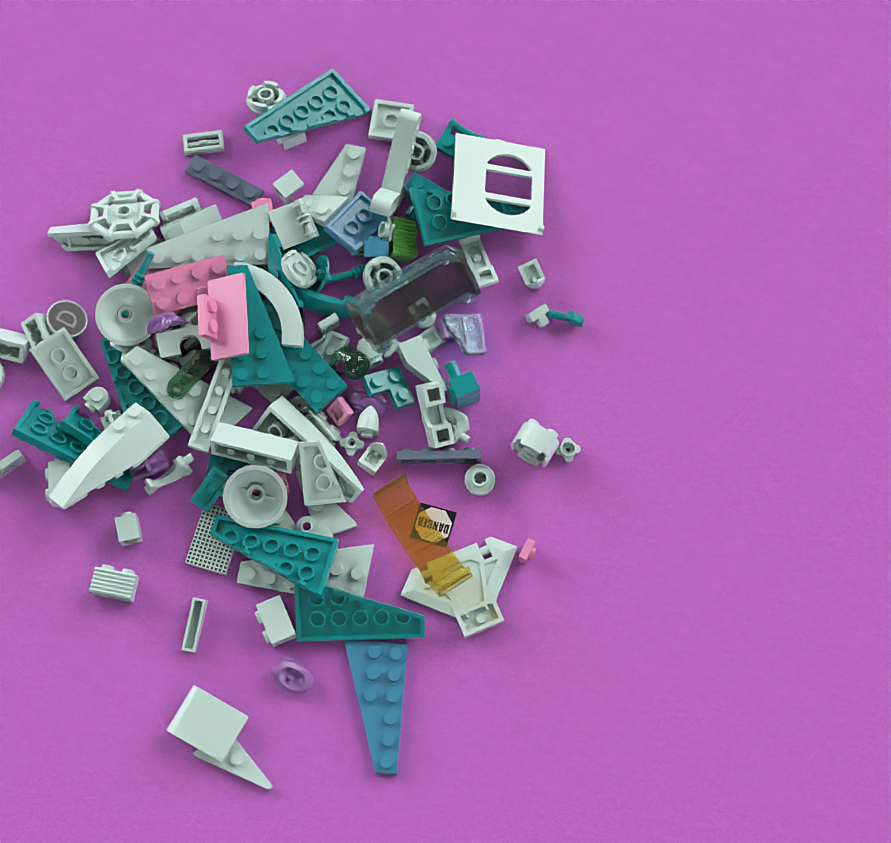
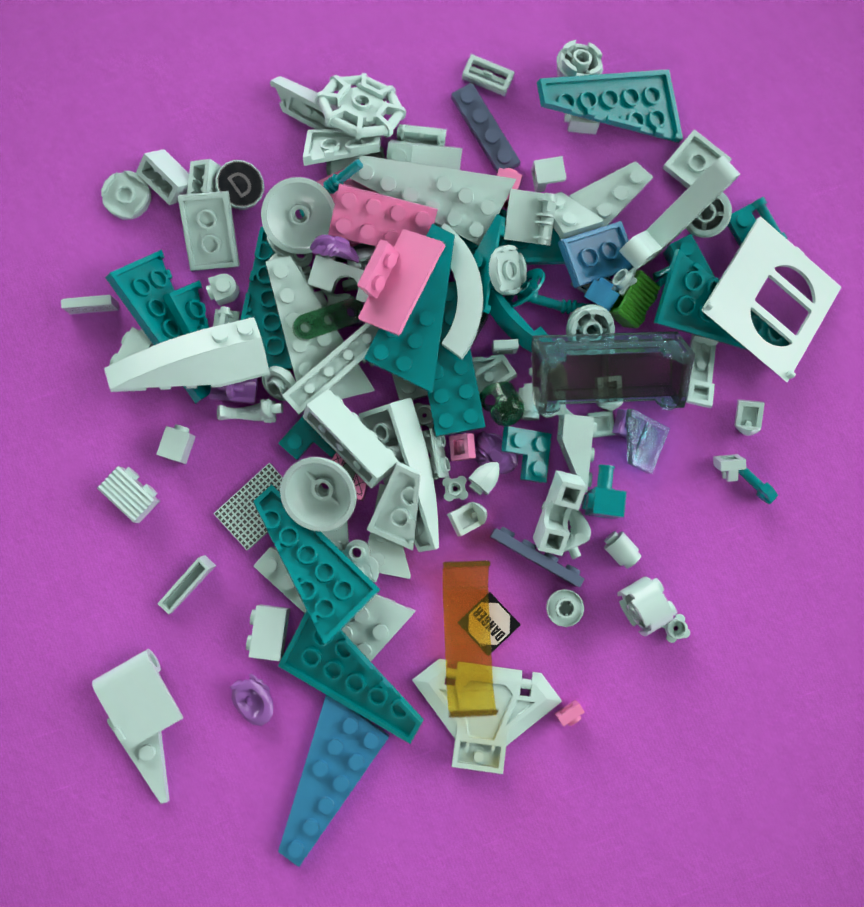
camera: 25 degrees right, 10 degrees up
(178, 442) = (278, 382): none -> light aqua plate
(210, 489) = (281, 453): teal plate -> none
(496, 416) = (622, 549): none -> light aqua brick

